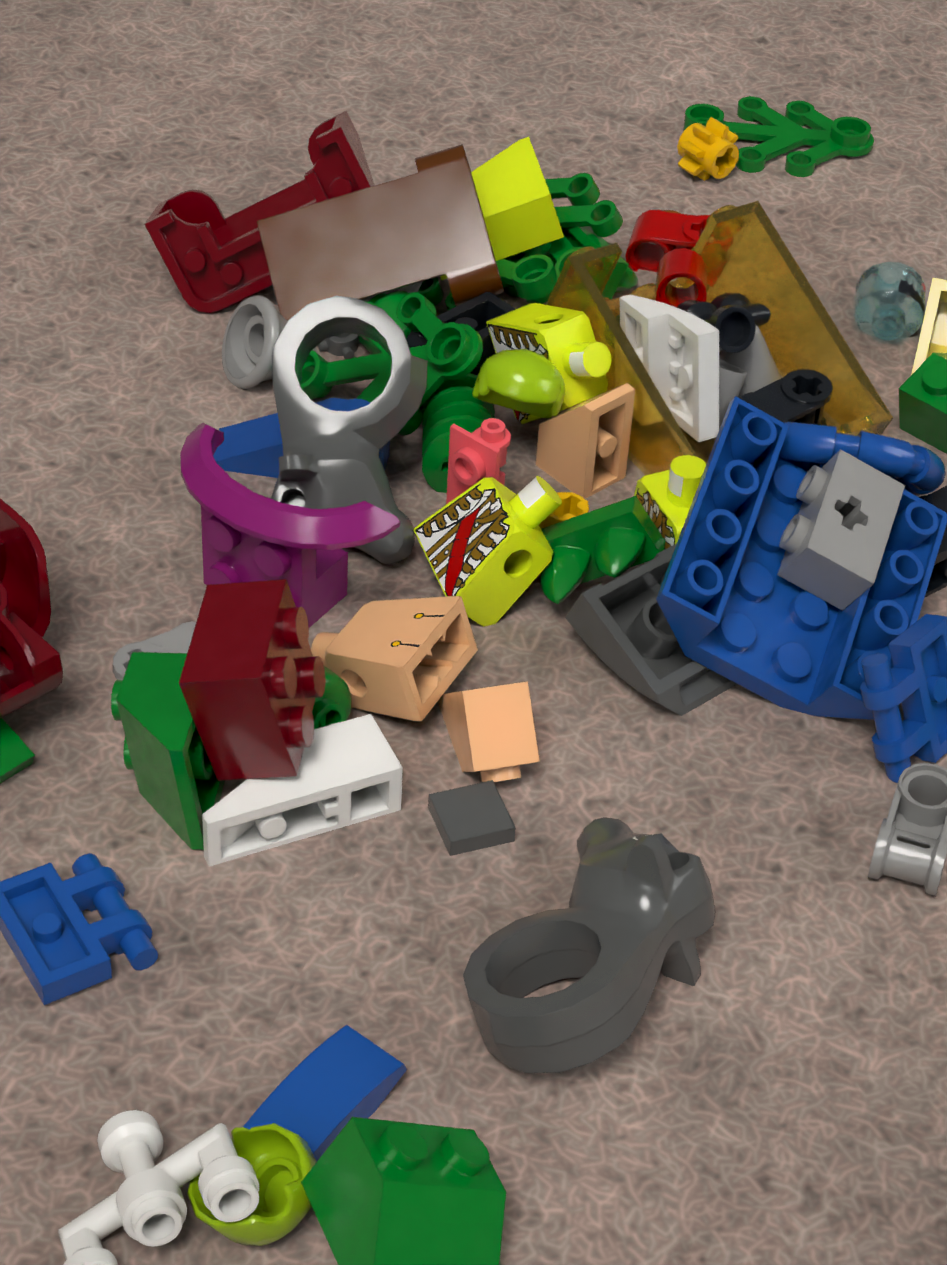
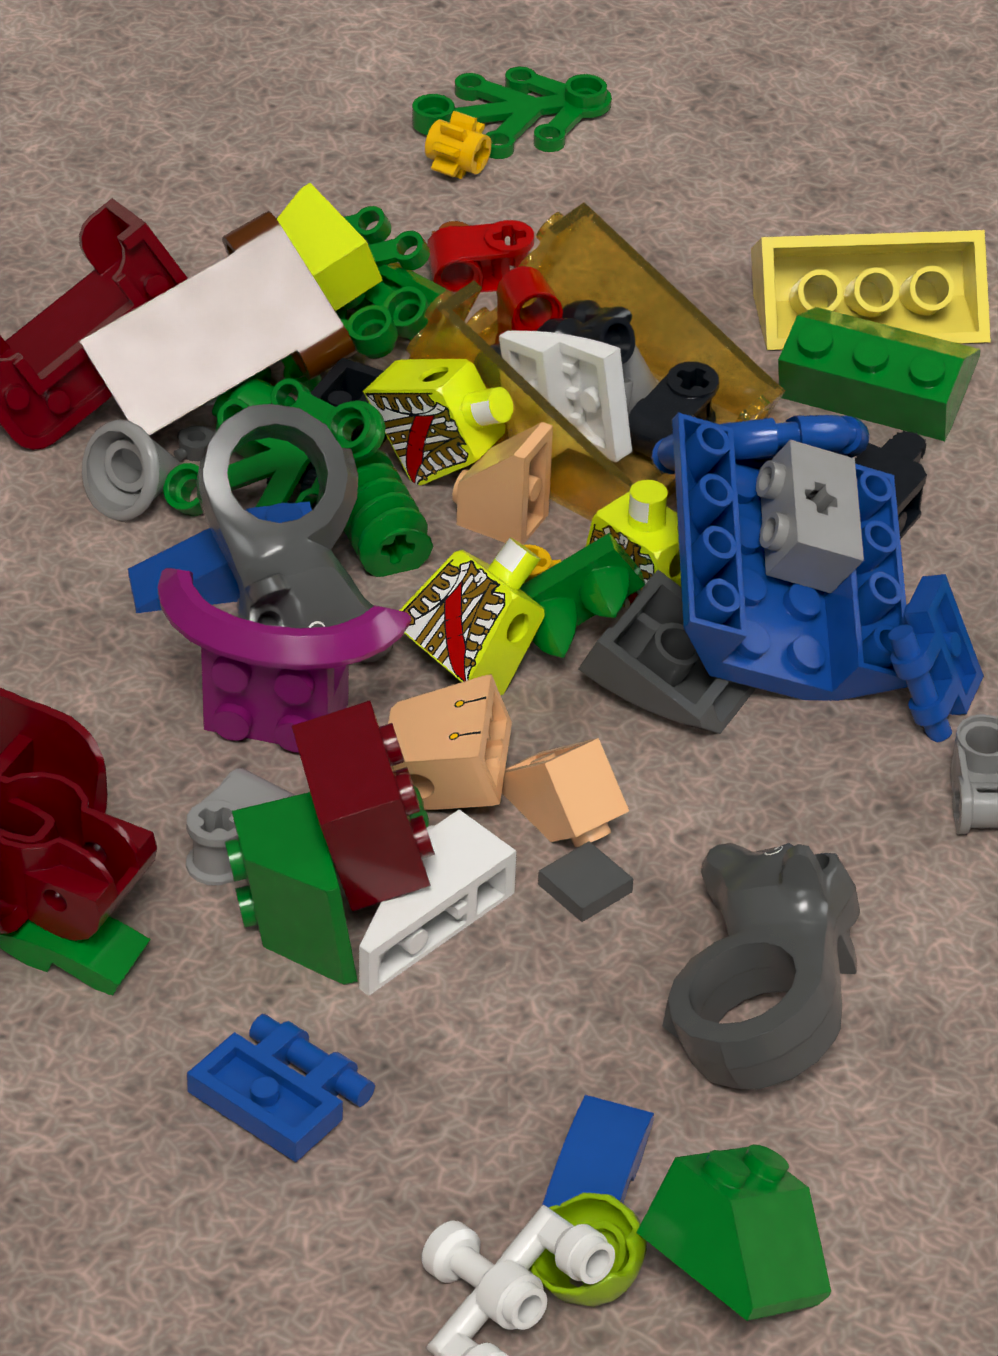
camera: 20 degrees left, 0 degrees up
(476, 455) = (426, 540): coral hinge -> none
(521, 383) = (434, 446): lime hair -> none
(890, 298) = (715, 266): clear light blue head -> none

